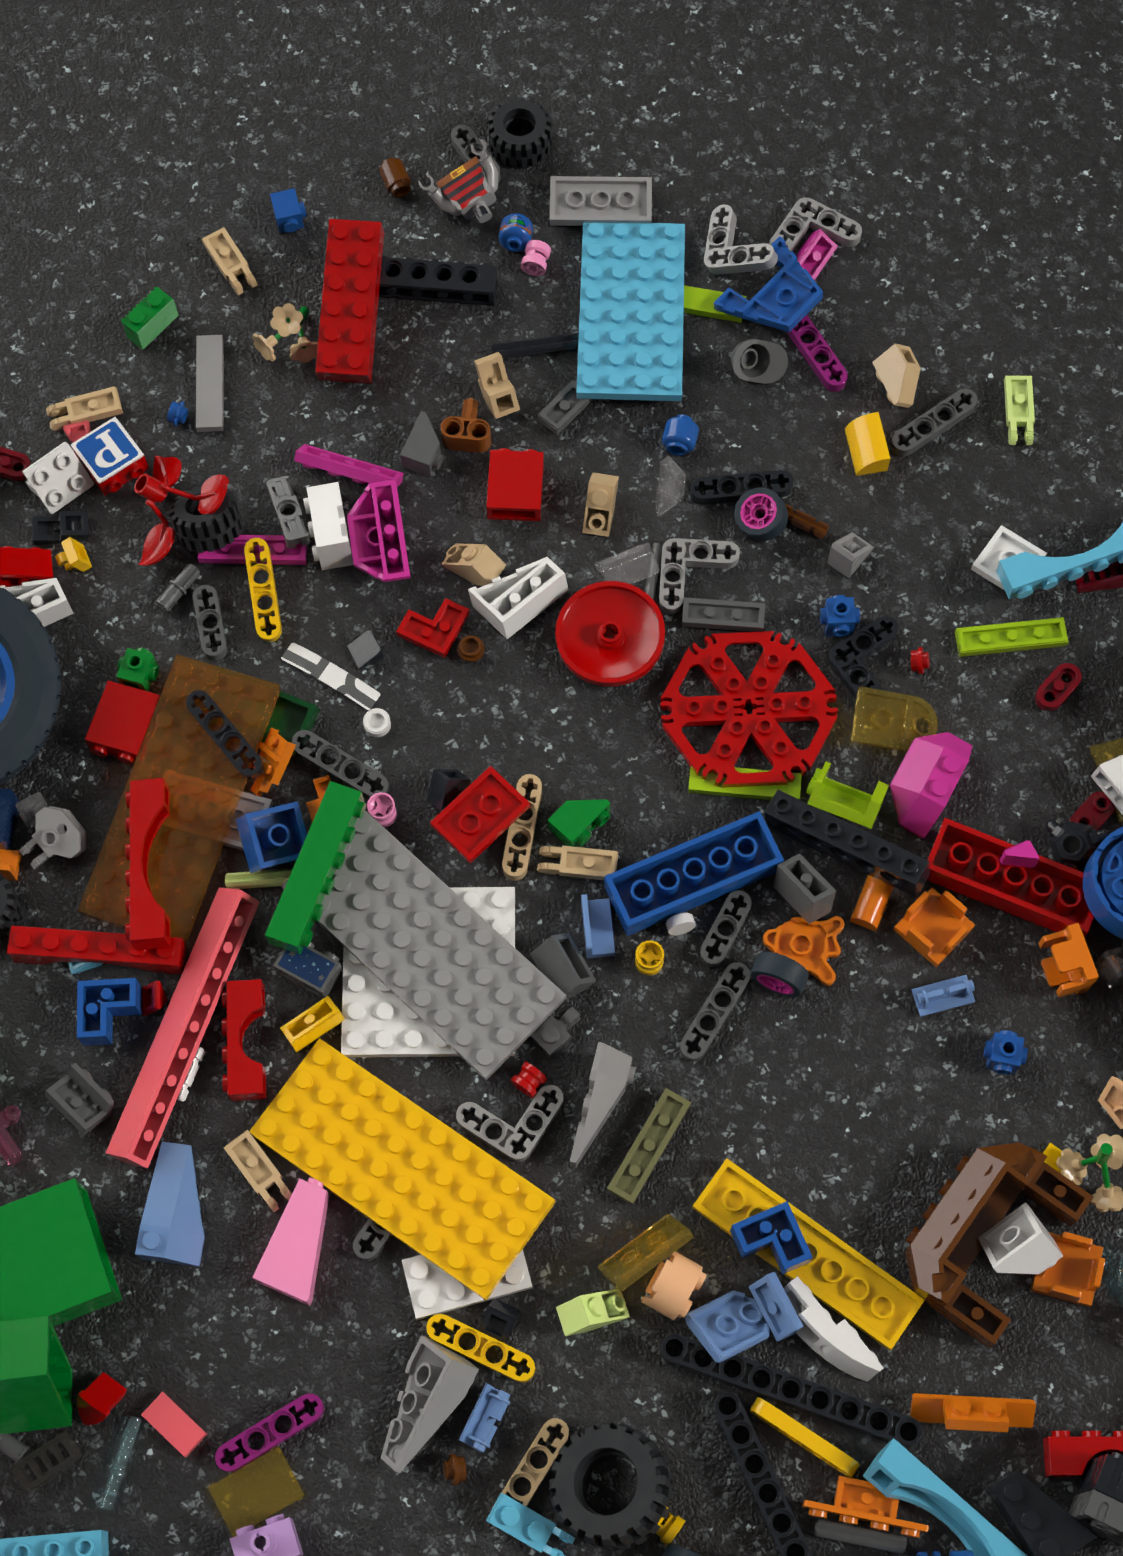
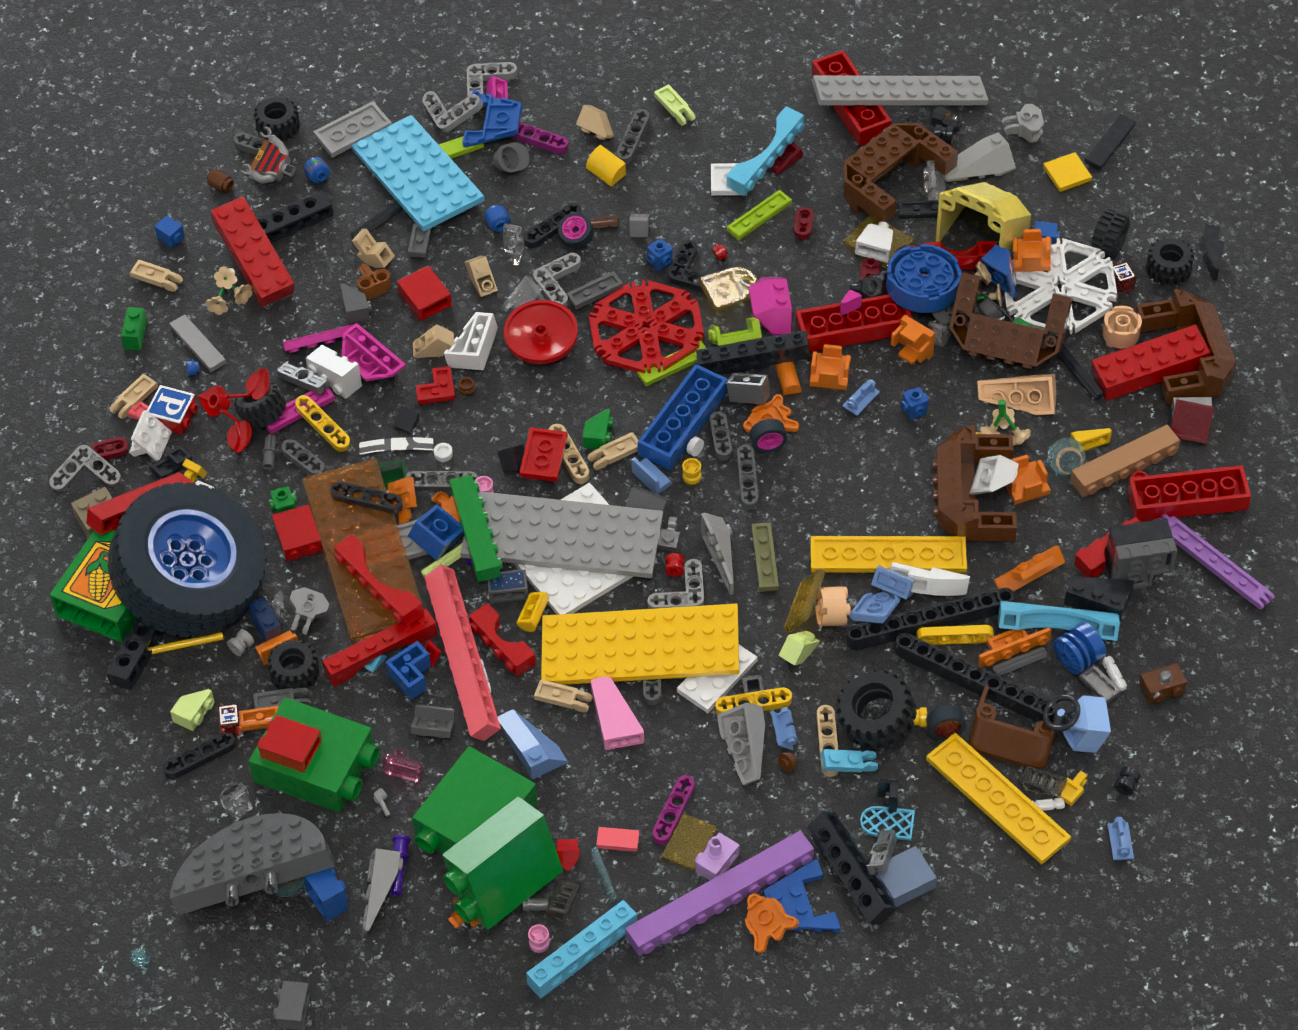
camera: 35 degrees left, 15 degrees down
(536, 255) = (339, 177): bright pink wheel -> none
(776, 1230) = (866, 546): blue brick -> none

